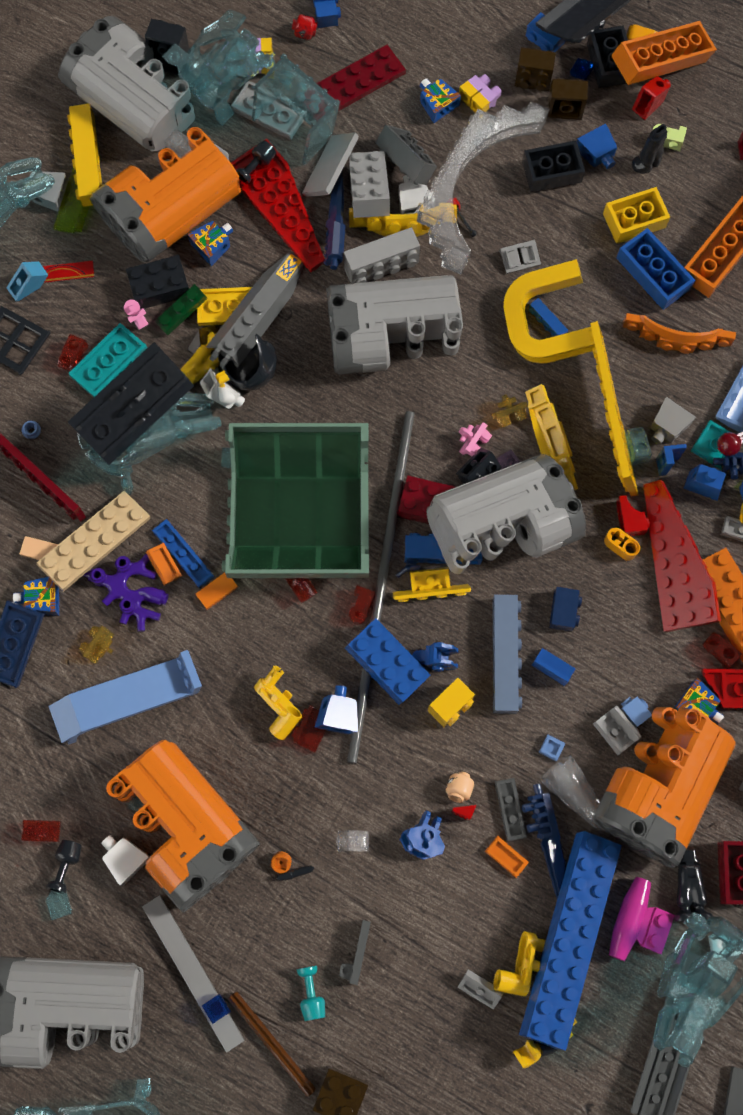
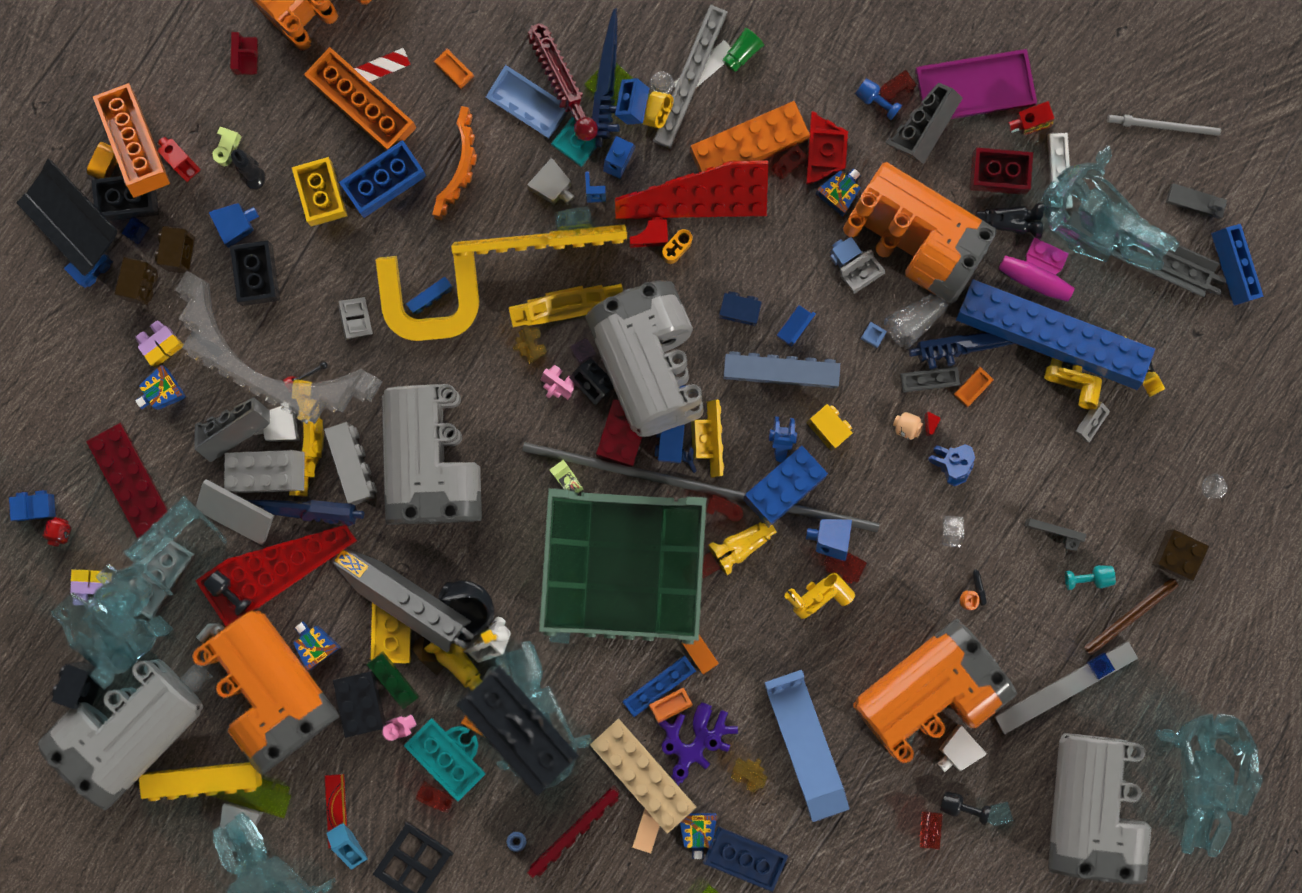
camera: 90 degrees left, 10 degrees up
(325, 623) = (741, 545): none -> yellow piece
(382, 452) = (566, 477): none -> yellowish green leg

